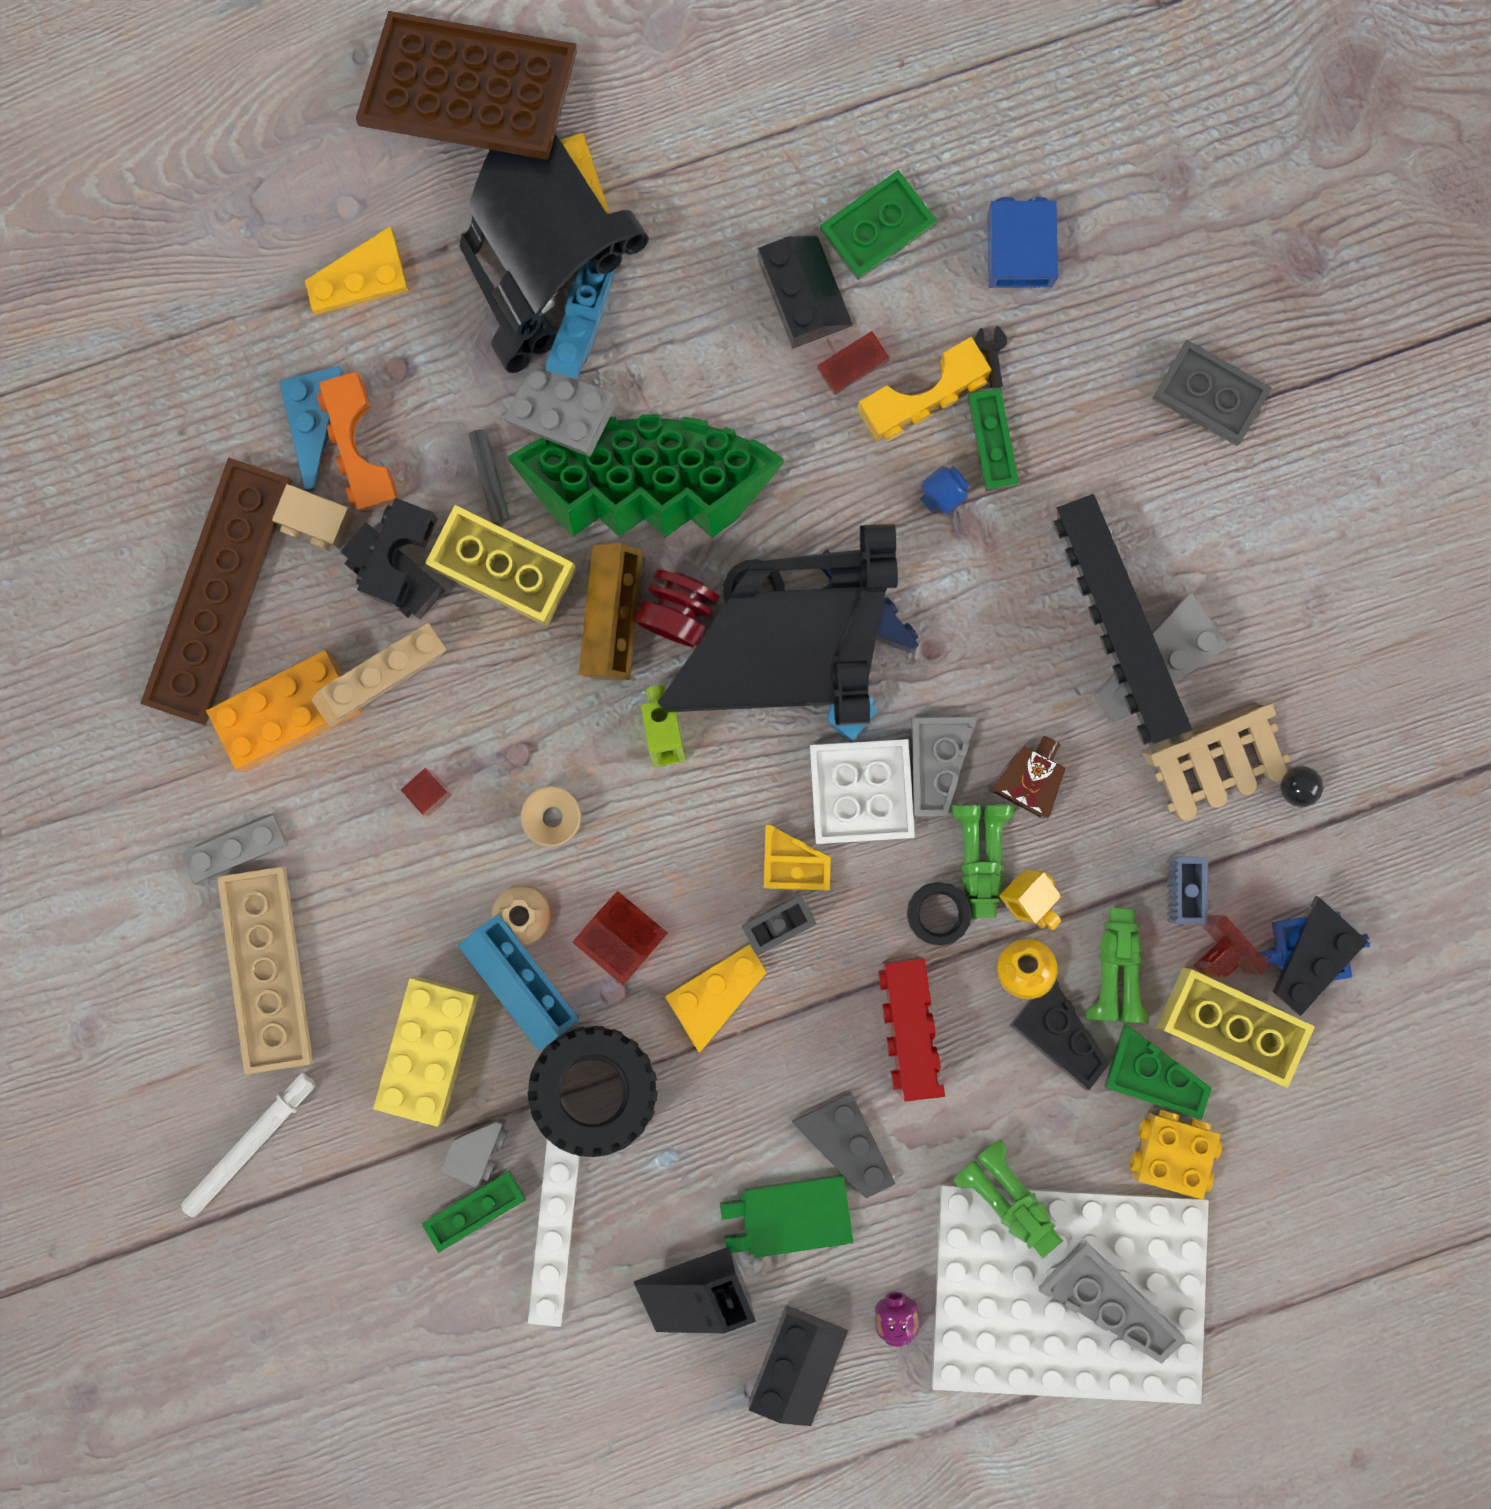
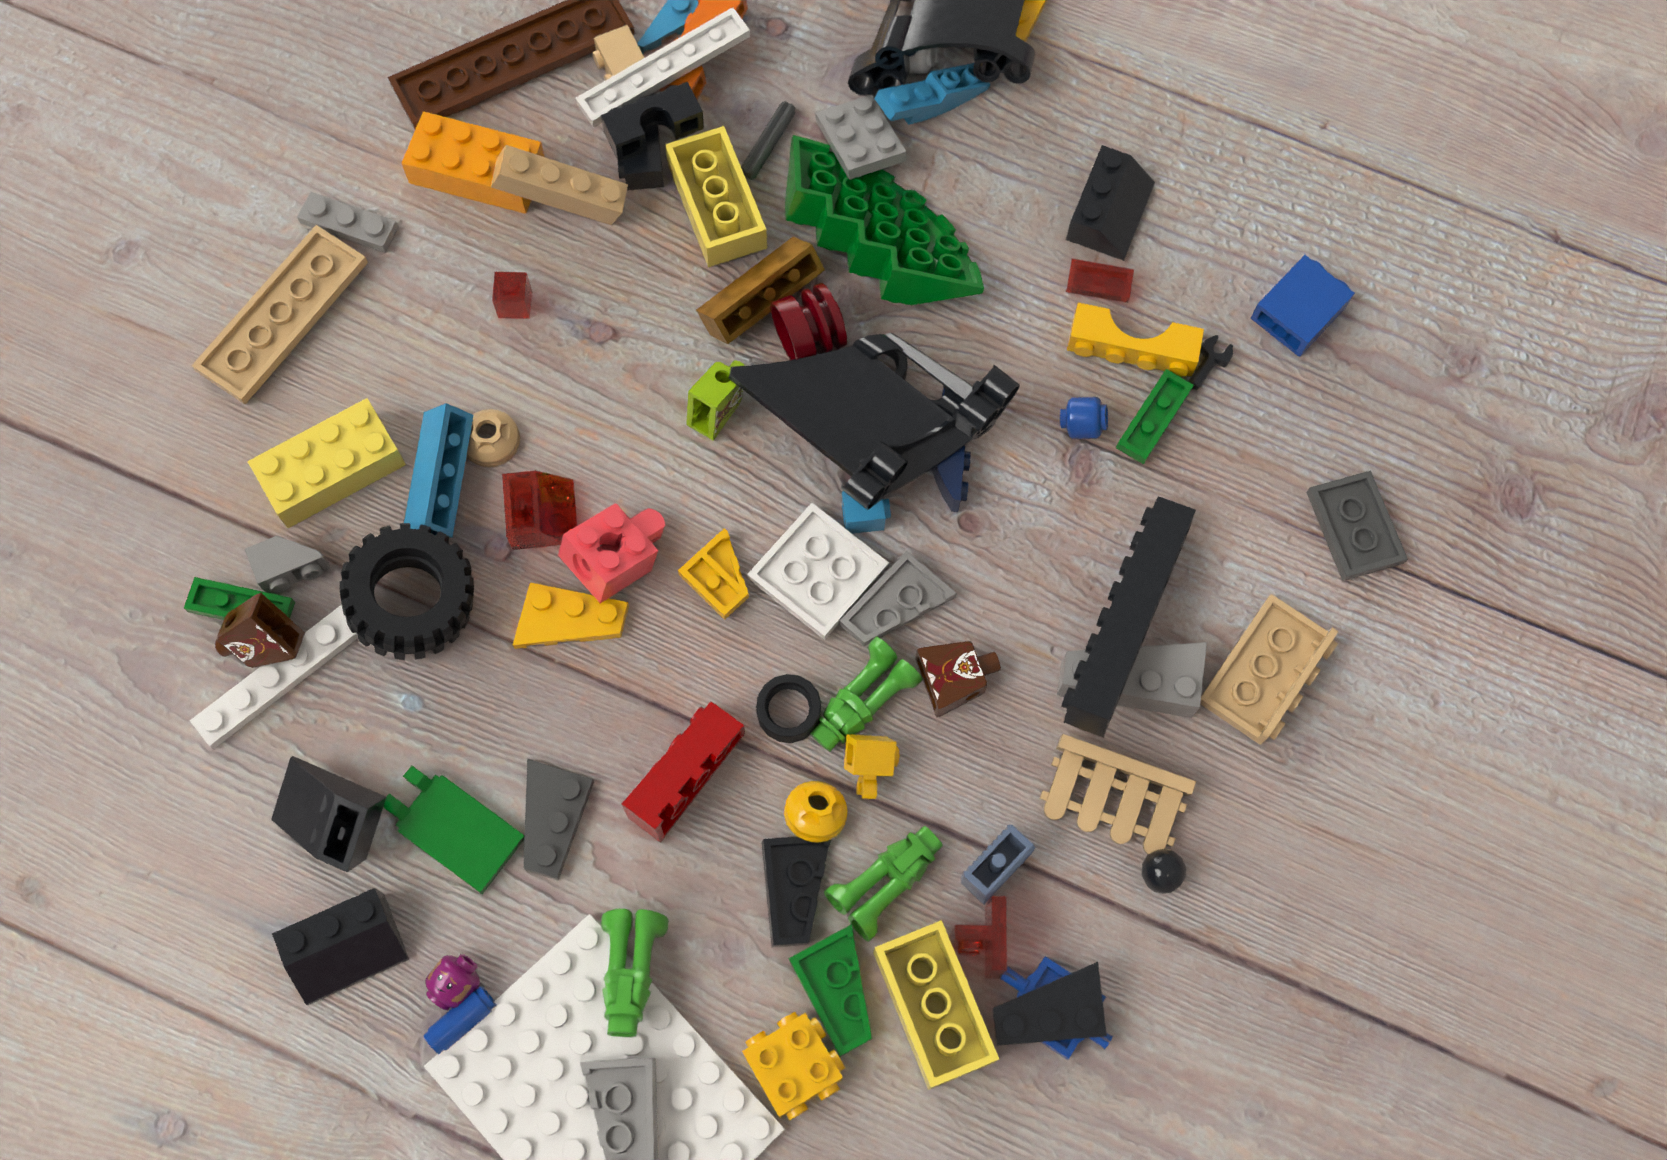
camera: 40 degrees right, 15 degrees down
(243, 1150) = (186, 413): white axle -> none
(358, 498) = (664, 65): none -> white plate
(517, 1221) = (259, 633): none -> reddish brown torso
(534, 810) = (576, 373): tan piece -> none
(704, 917) = (624, 552): none -> coral brick
(778, 924) = (661, 603): dark grey brick -> none
(878, 225) = (1206, 208): green plate -> none
(926, 1344) = (459, 1020): none -> blue piece
(1246, 566) = (1268, 670): none -> tan bracket

